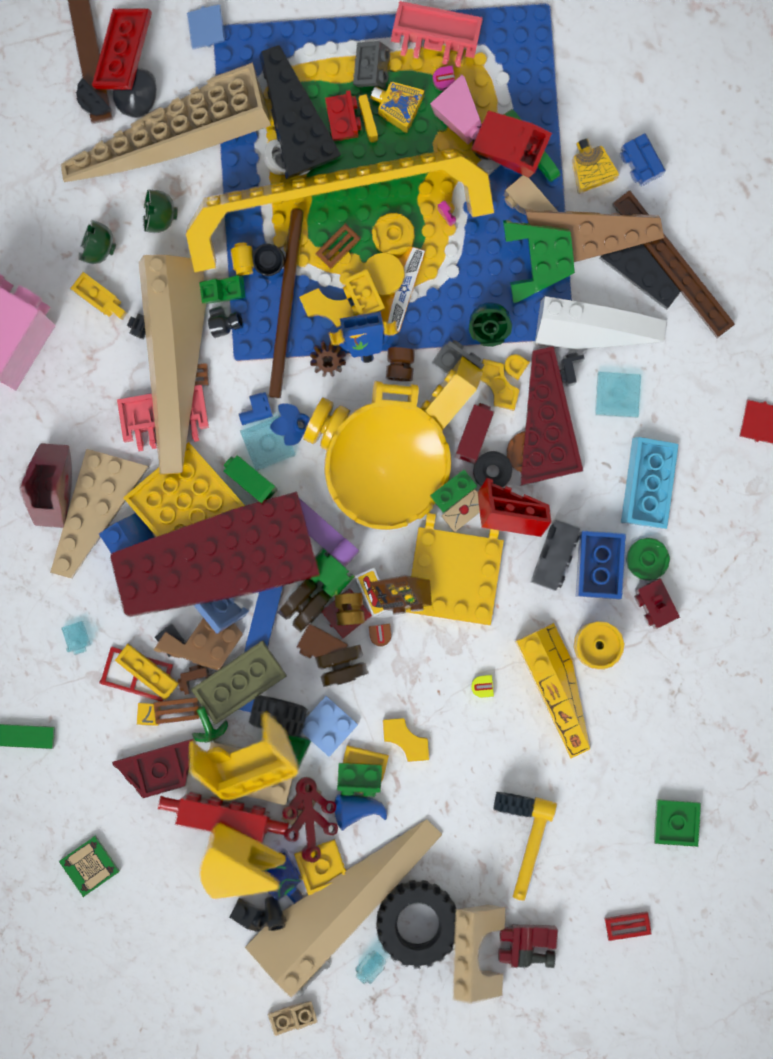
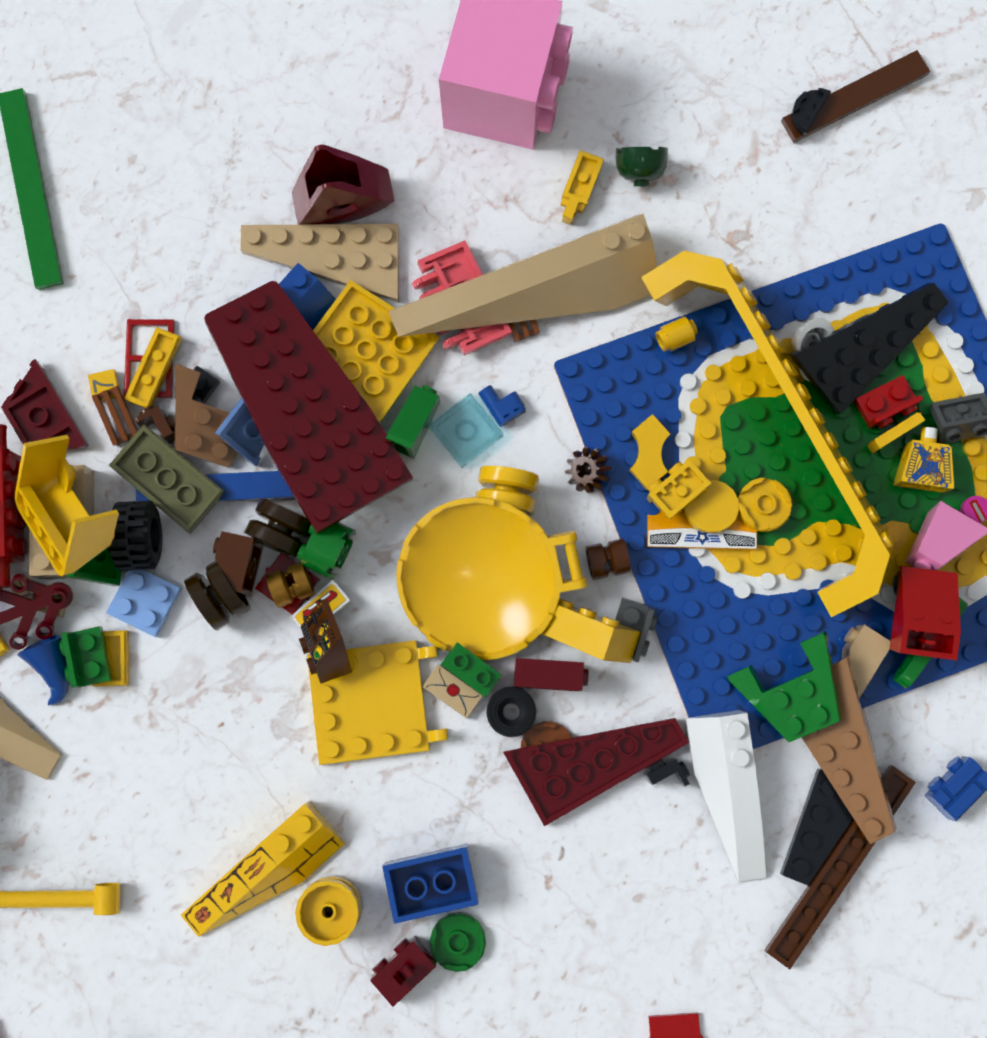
camera: 75 degrees right, 5 degrees down
(76, 637) = (172, 277): clear light blue bracket -> none
(122, 49) = (880, 124): red tile -> none
(137, 326) = (558, 236): black gear -> none
(139, 99) = (835, 156): black piece -> none
(158, 211) = (702, 223): dark green cylinder -> none
(206, 26) = (939, 214): medium blue piece -> none
(208, 116) = (836, 249): tan wedge -> none
(210, 733) = (96, 462): green plant -> none
(220, 324) = (591, 334): black piece -> none
(222, 290) = (632, 323): green slope -> none
(268, 259) = (685, 364): black hair -> none
(286, 302) = (640, 401): reddish brown piece -> none
(288, 424) = (494, 446): blue plate -> none
(325, 259) = (724, 452): dark orange tile -> none
(328, 537) = (372, 532): medium lavender beam -> none
(363, 335) = (628, 501): blue torso -> none
(380, 634) = (272, 632): dark orange tile -> none
(397, 732) = (146, 712): yellow tile -> none
(443, 209) = (815, 556): dark pink tile -> none
(482, 686) = (241, 777): neon yellow tile -> none
(490, 324) = (690, 654): dark green cylinder -> none
(503, 392) = (612, 697): yellow tile -> none
(512, 512) = (464, 750): red wedge -> none
(513, 804) = (100, 859): black bush -> none
(515, 365) = (650, 702): yellow tile -> none
(555, 555) = (426, 821): black wedge -> none
(592, 167) = (928, 726): yellow torso -> none
(618, 394) = (653, 842): clear light blue tile -> none
(649, 483) = (554, 916): medium azure slope -> none

